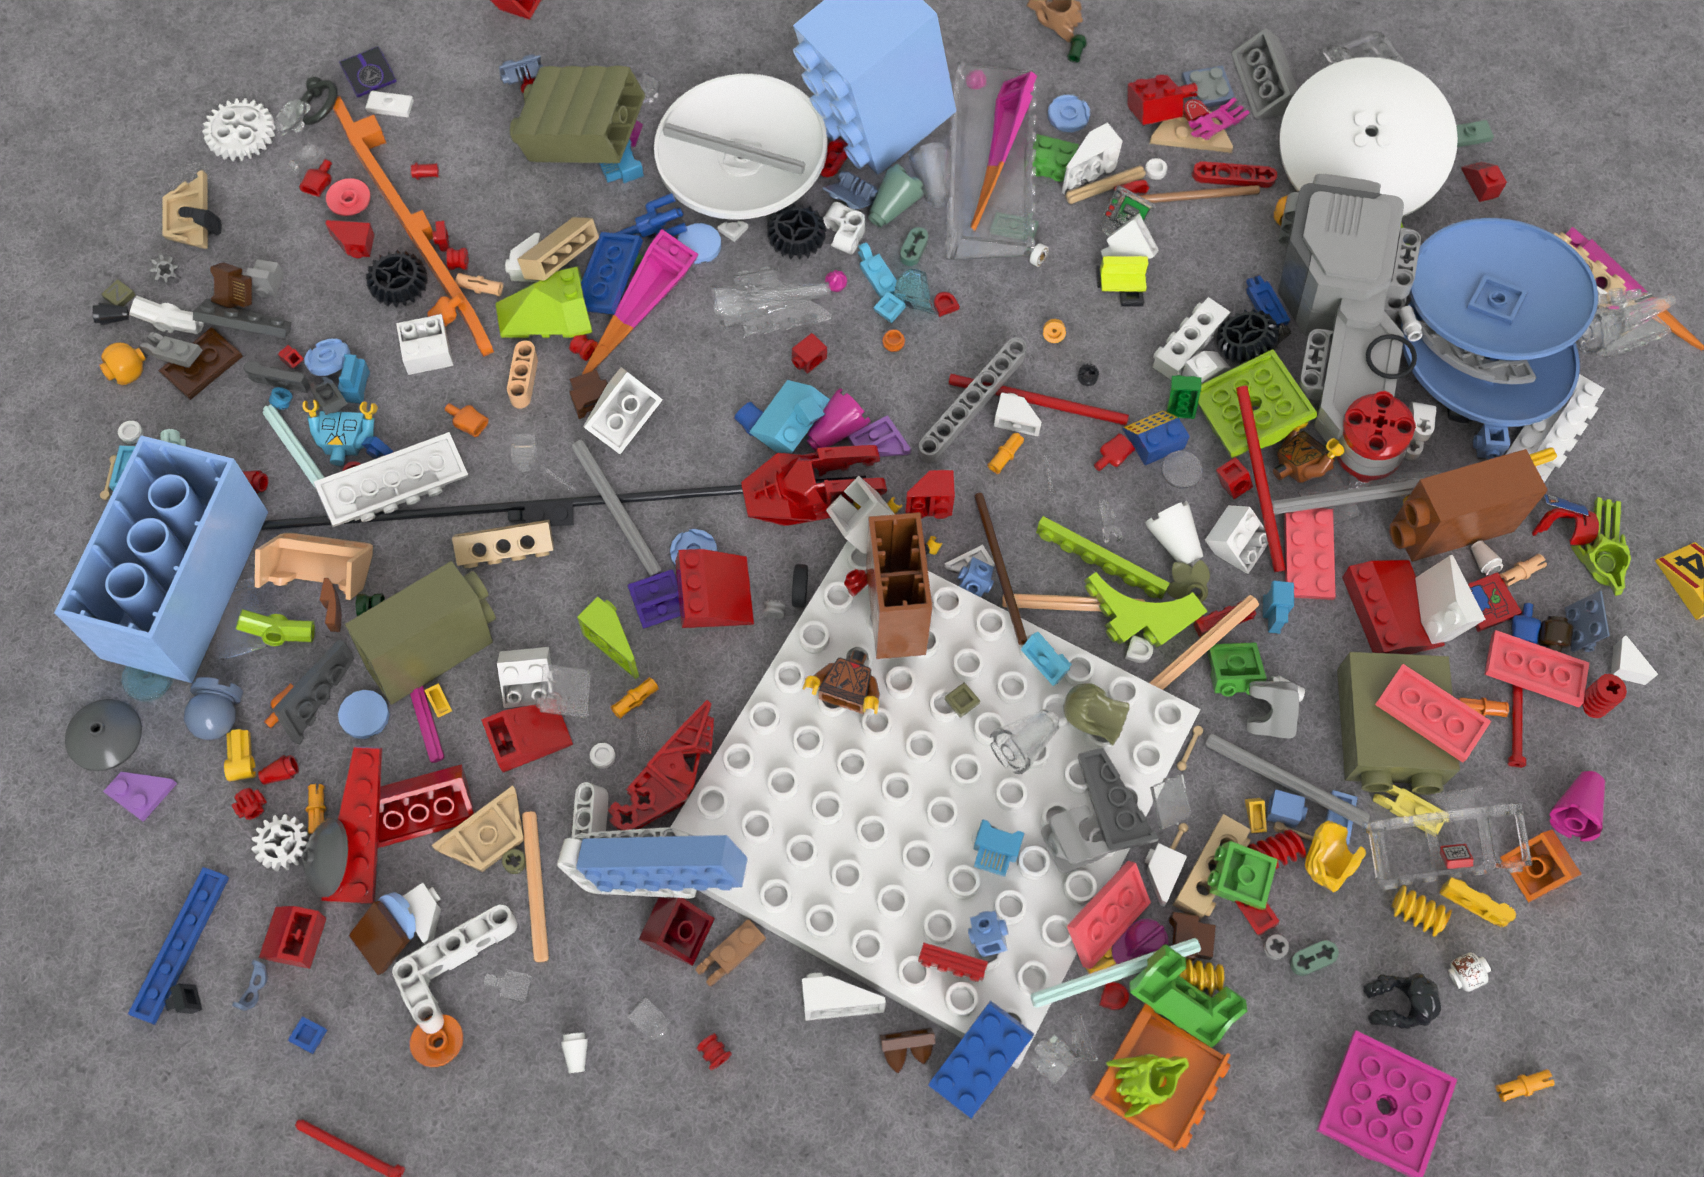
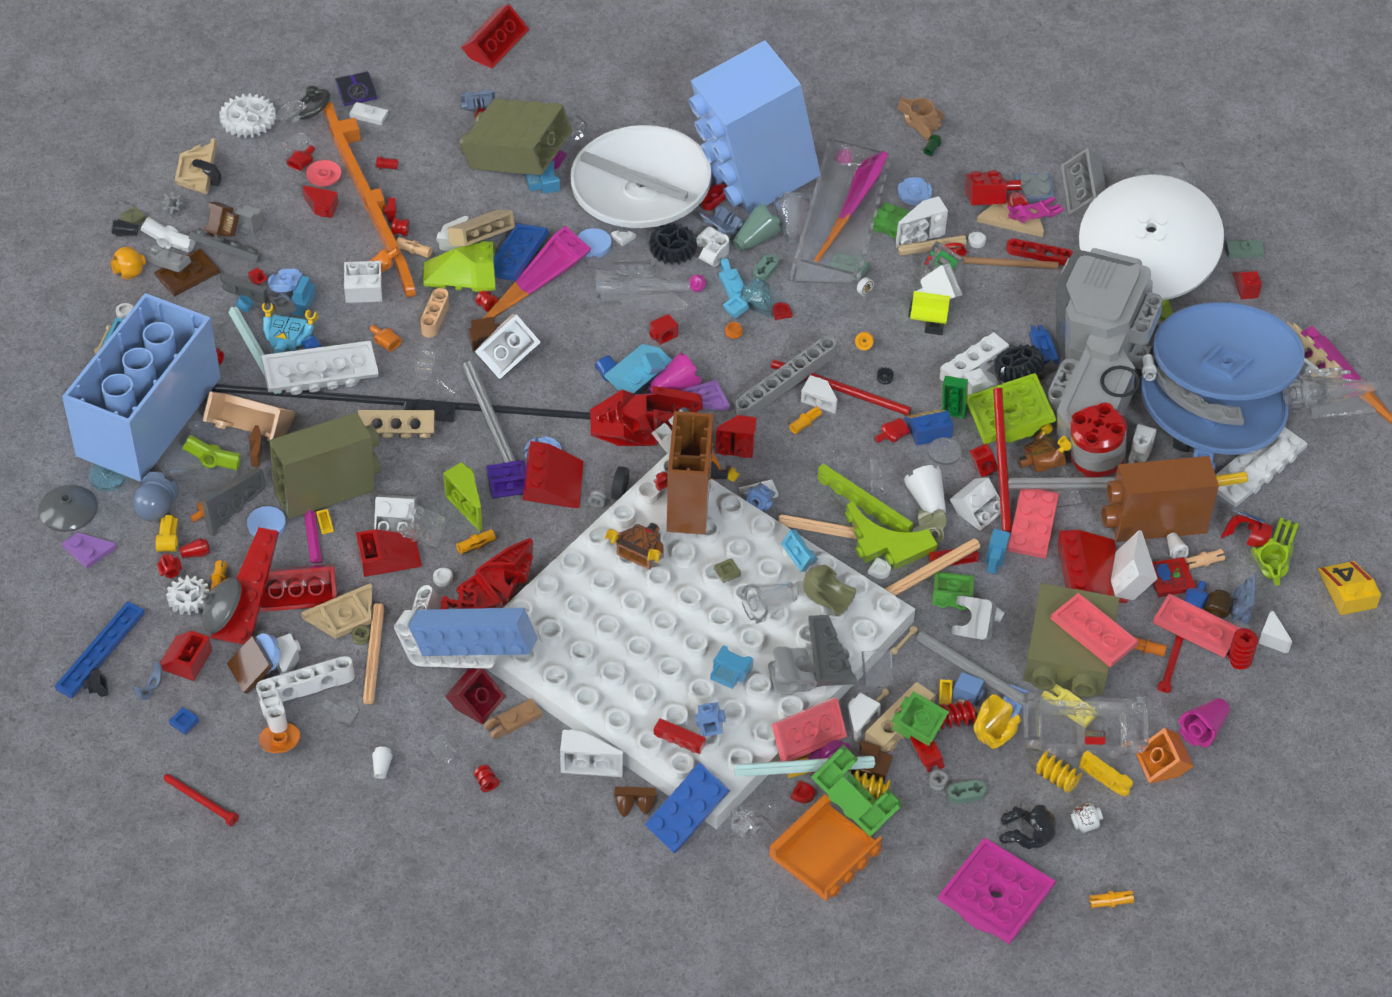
camera: 10 degrees right, 15 degrees down
(399, 283) = (355, 234): black gear -> none
(654, 221) = (559, 220): blue plant -> none
(1001, 569) = (780, 491): reddish brown piece -> none
(1143, 1079) = (813, 841): lime piece -> none

